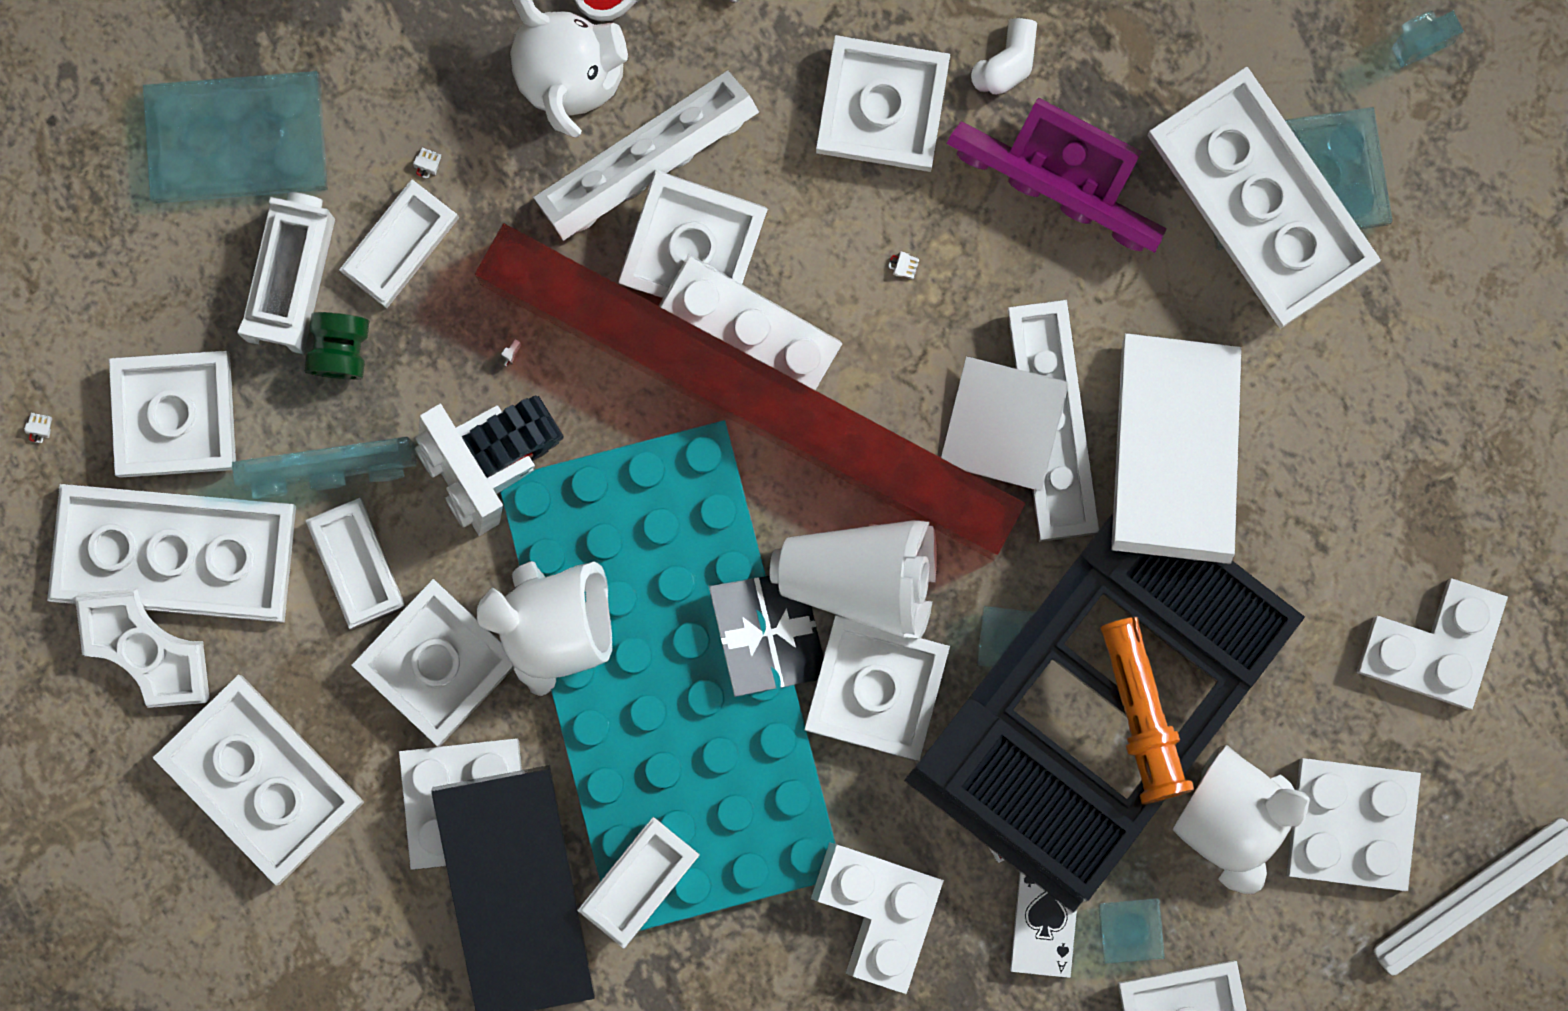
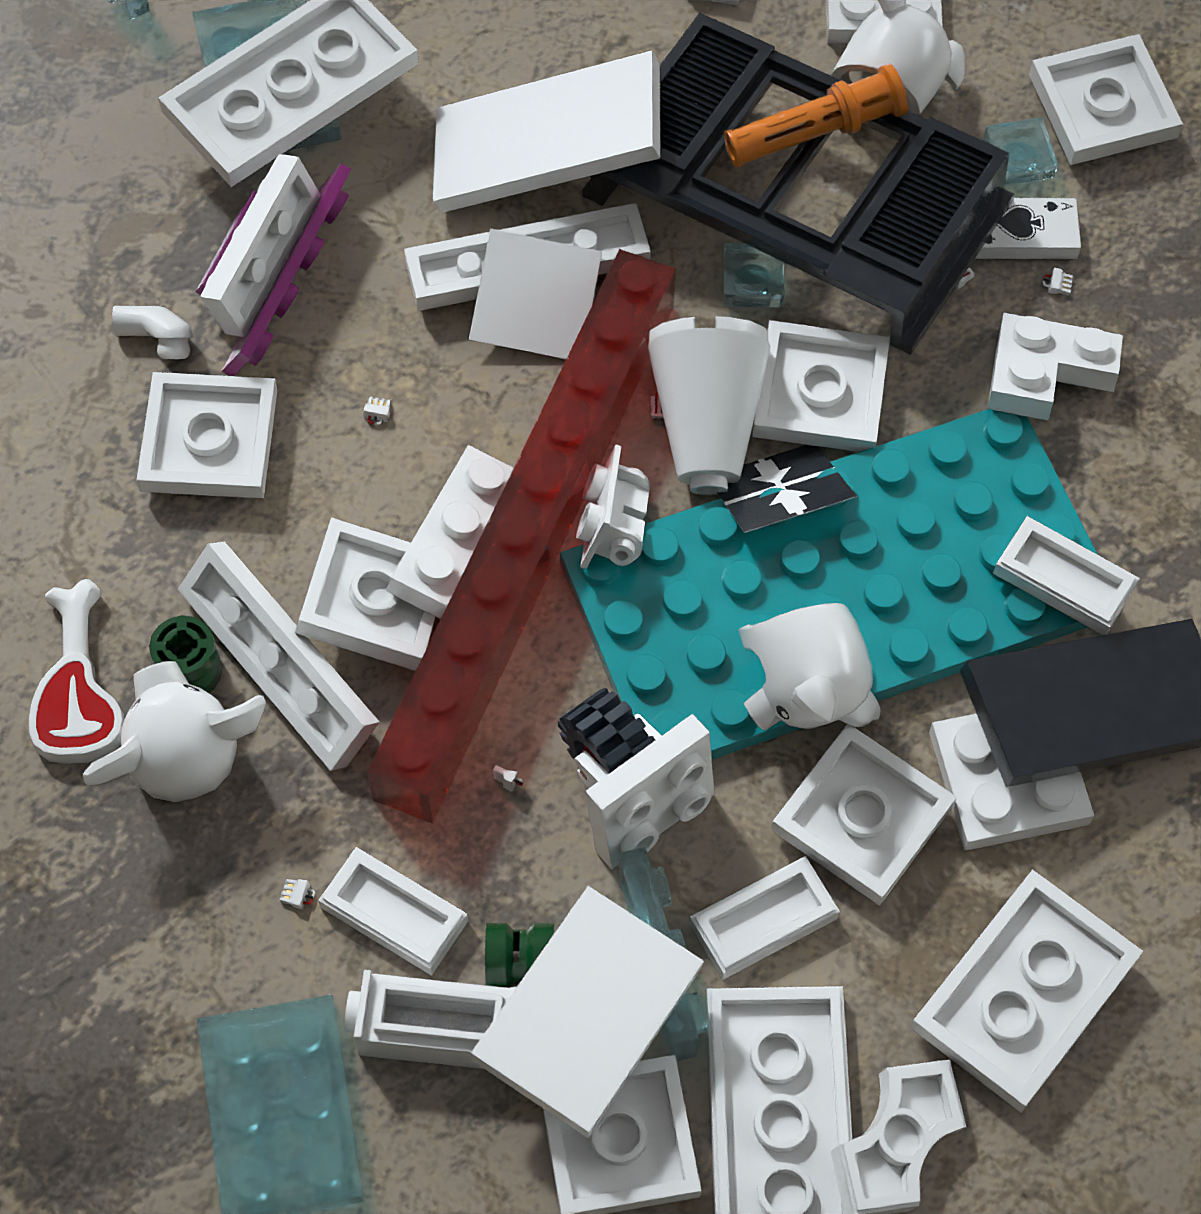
camera: 100 degrees left, 20 degrees down
(261, 391) = (586, 1011): none -> white tile
(651, 85) = (199, 665): none -> dark green wheel
(730, 460) = (614, 518): none -> white hinge
(982, 947) = (1059, 282): none -> white piece
(1066, 158) = (260, 245): none -> white plate

